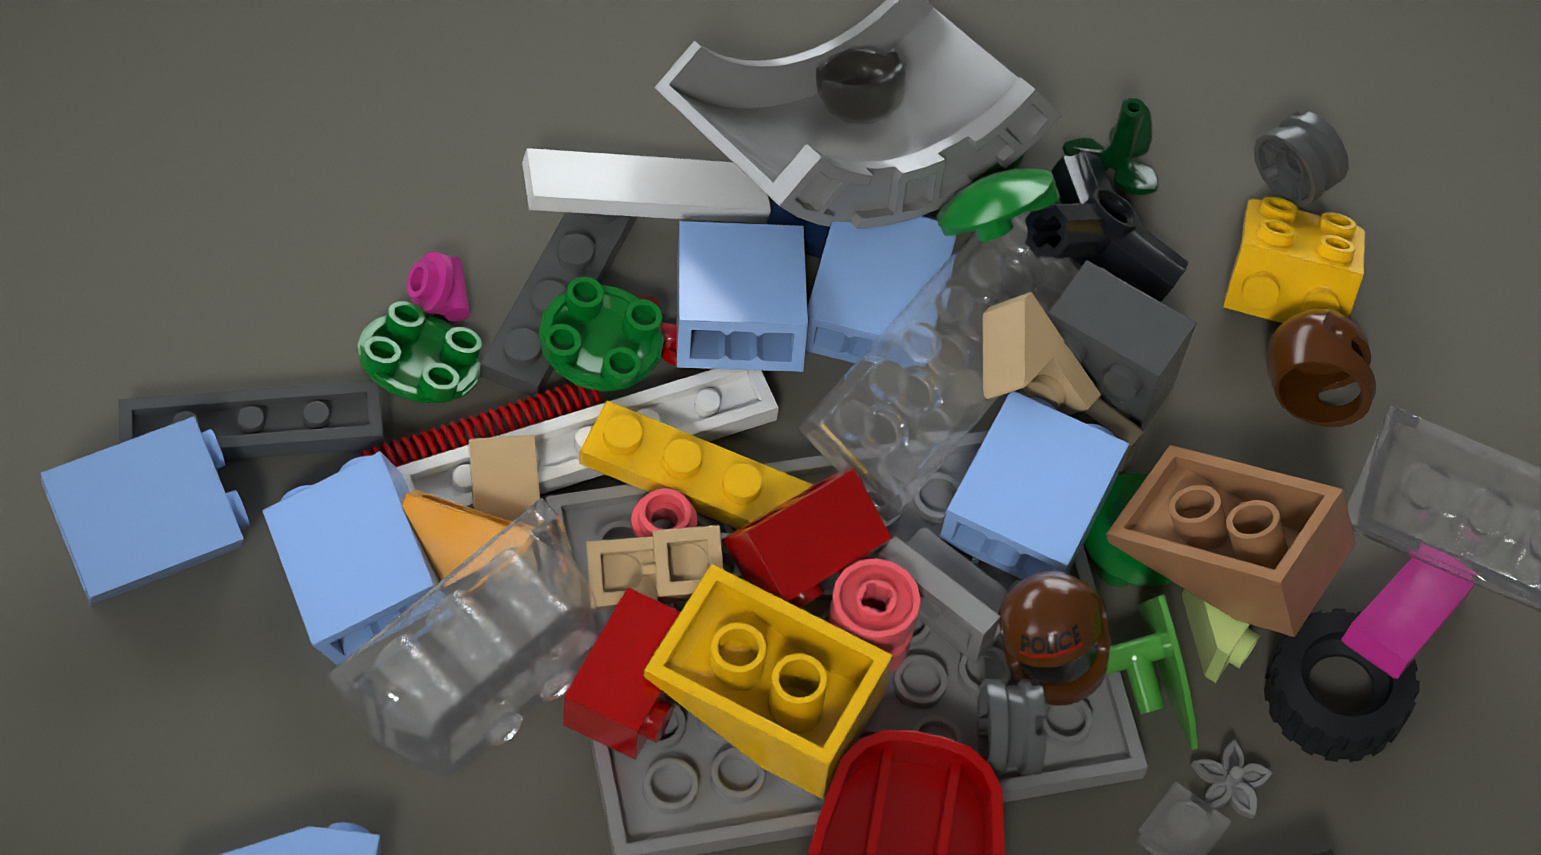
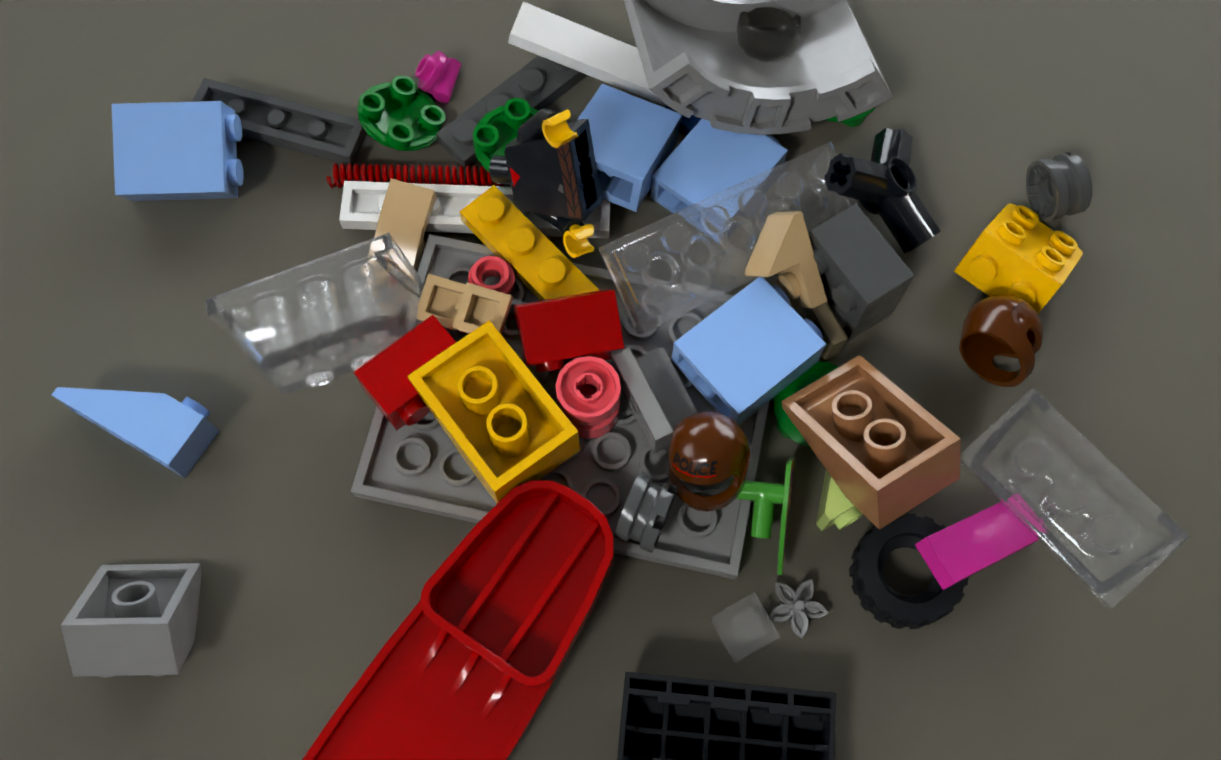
camera: 30 degrees right, 10 degrees up
(350, 554) = (287, 221): light blue brick -> none
(449, 529) = (345, 226): light orange slope -> none
(691, 359) = (553, 174): none -> torso
(995, 200) = (814, 138): green dish -> none
(1128, 140) = (942, 131): dark green plant -> none

